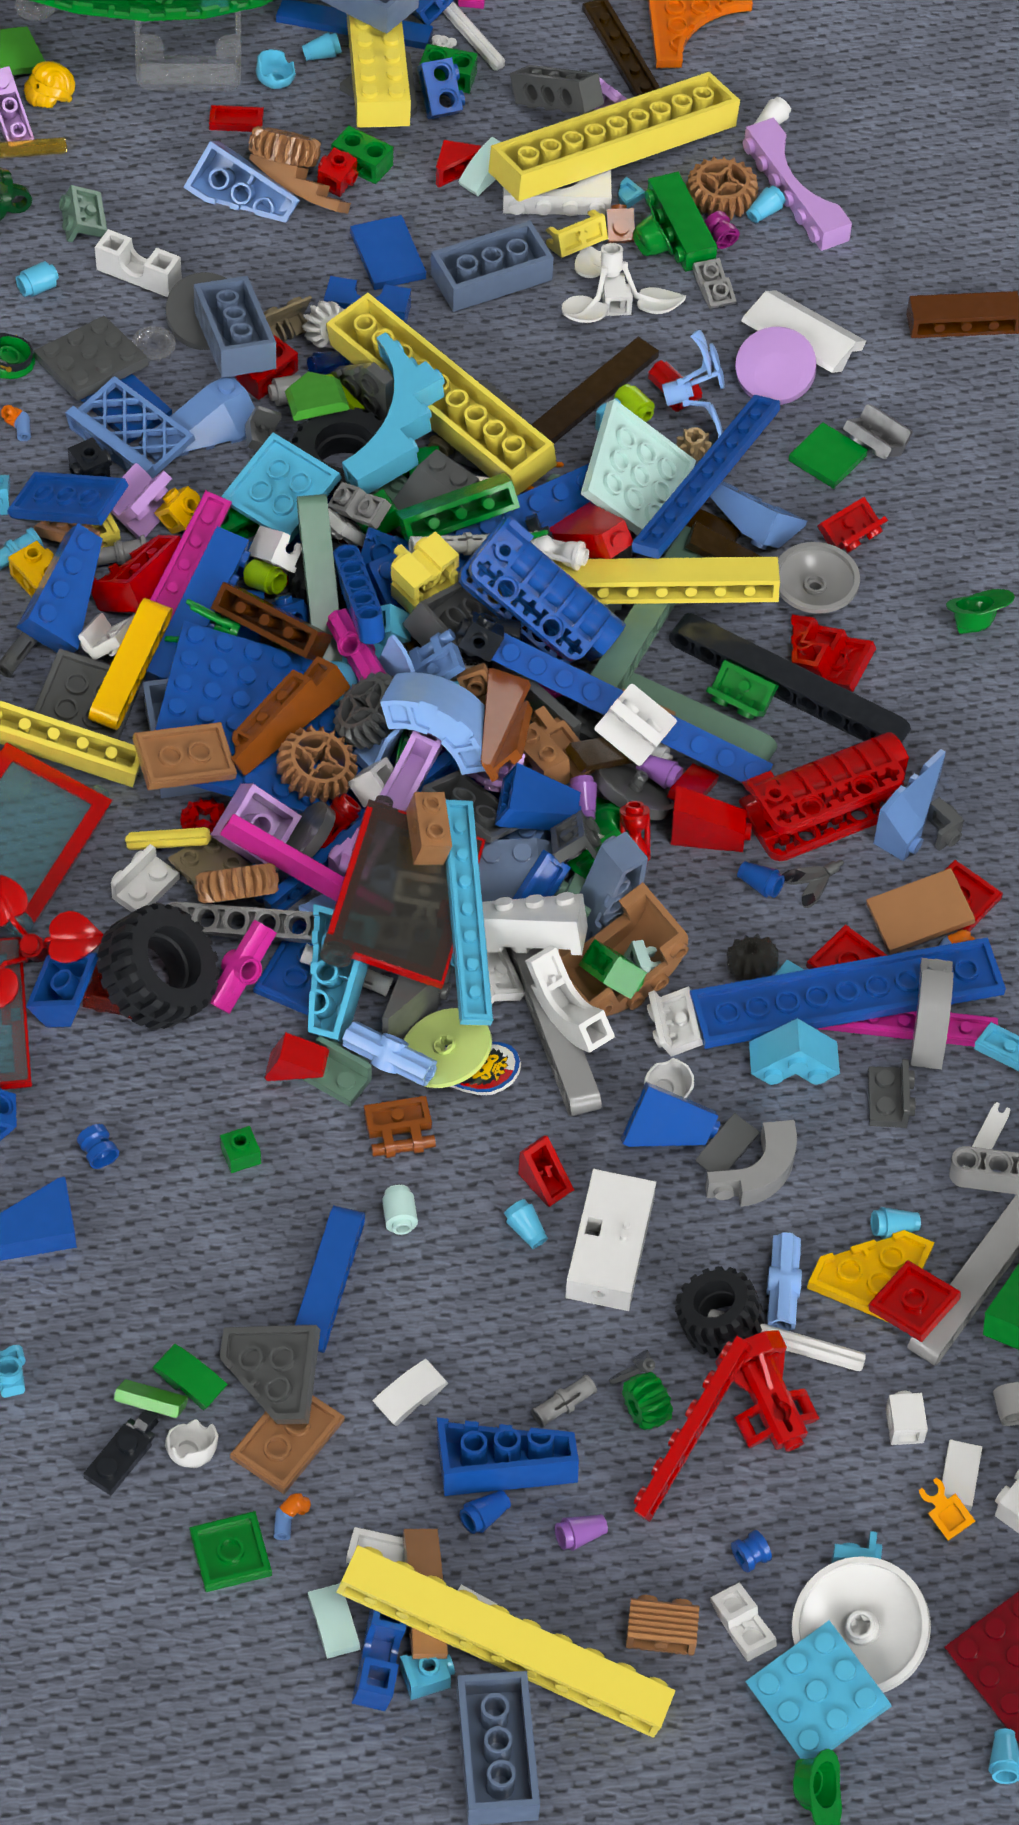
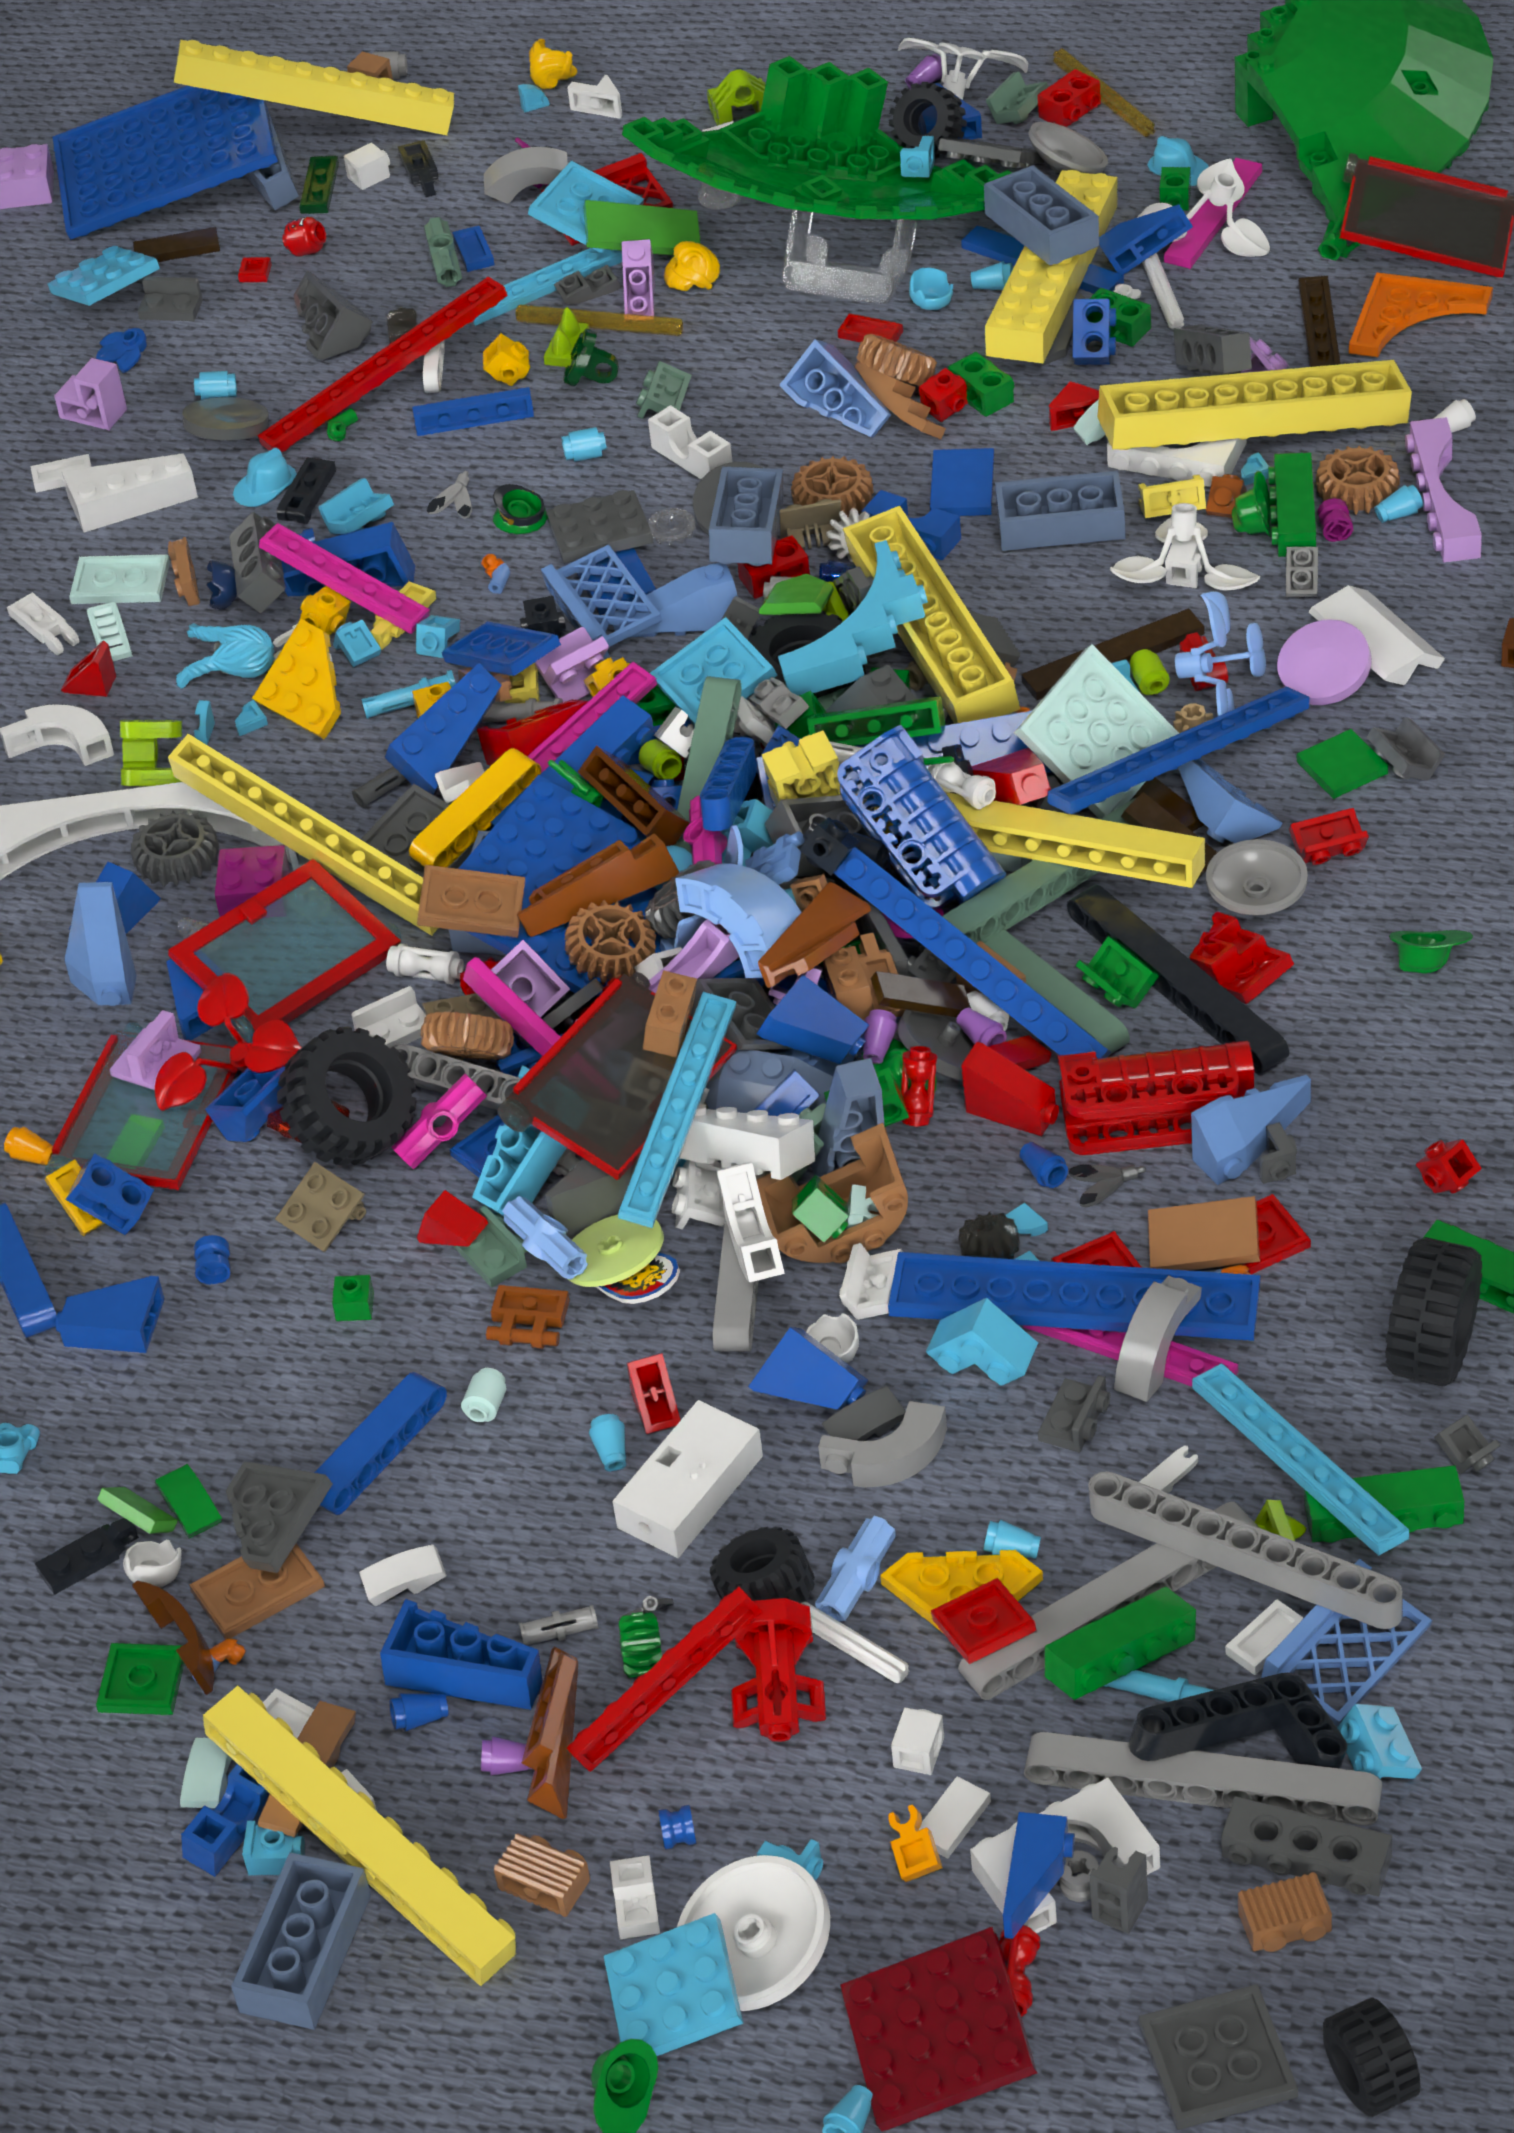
camera: 30 degrees right, 10 degrees down
(134, 818) = (410, 961): none -> white piece
(168, 838) = (434, 986): light yellow axle -> none
(169, 1071) = (321, 1207): none -> dark tan hinge
(222, 1481) = (195, 1652): none -> reddish brown slope
(281, 278) = (834, 481): none -> medium nougat gear
(574, 835) = (824, 1066): dark grey bracket -> none
(609, 1496) = (551, 1734): none -> dark orange wedge
(635, 724) = (962, 971): white bracket -> none
(769, 929) = (1028, 1220): none -> medium azure tile

